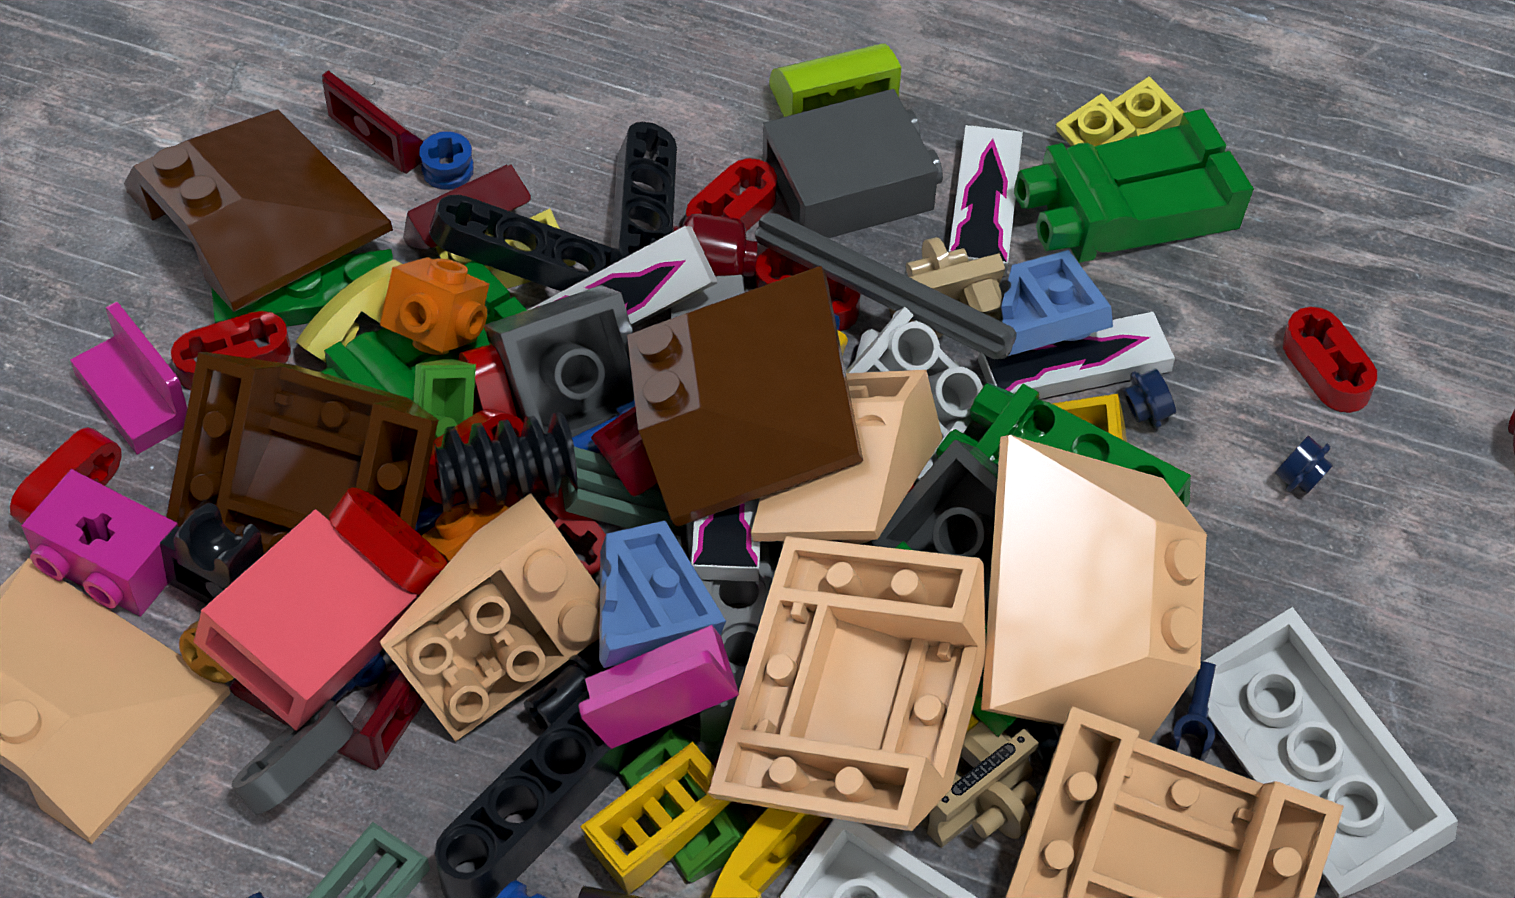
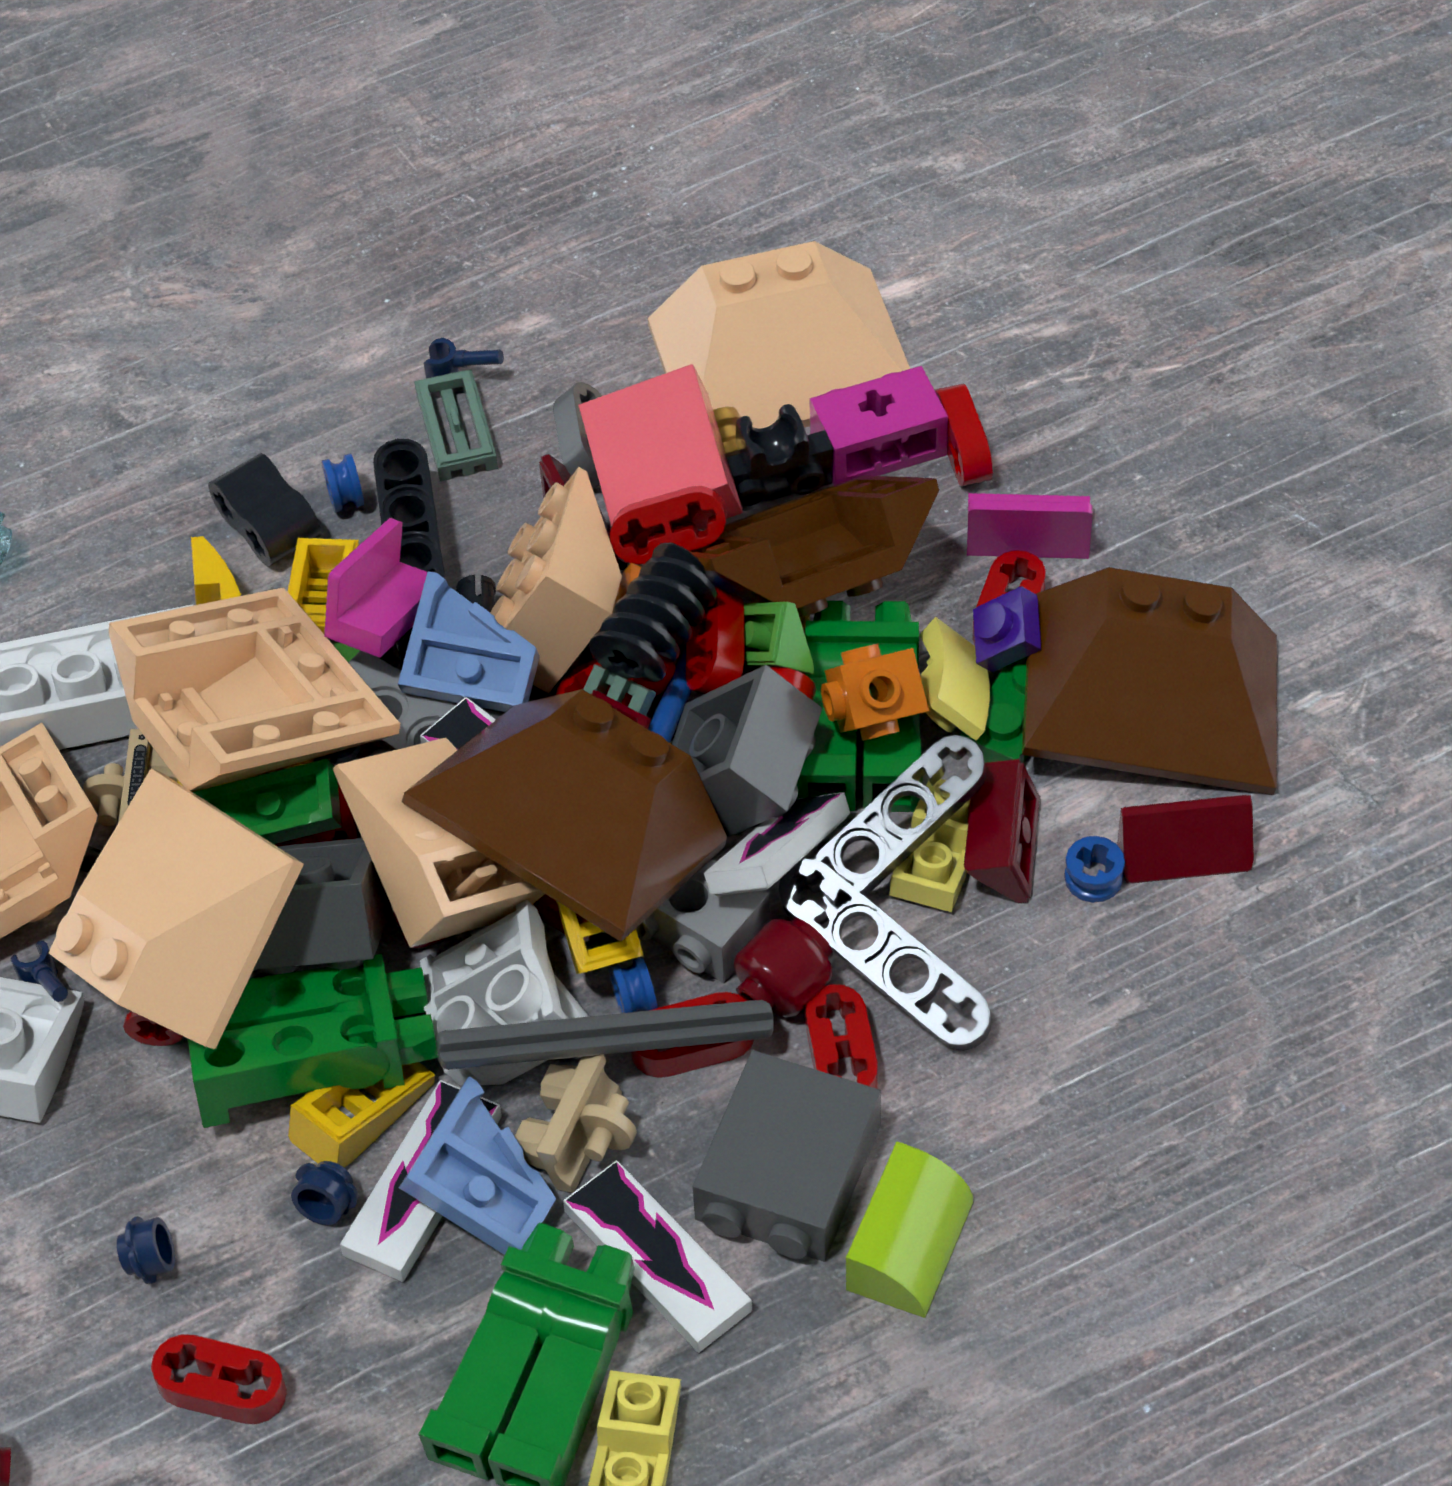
camera: 135 degrees right, 0 degrees up
(282, 294) = (1006, 629): none -> dark purple plate

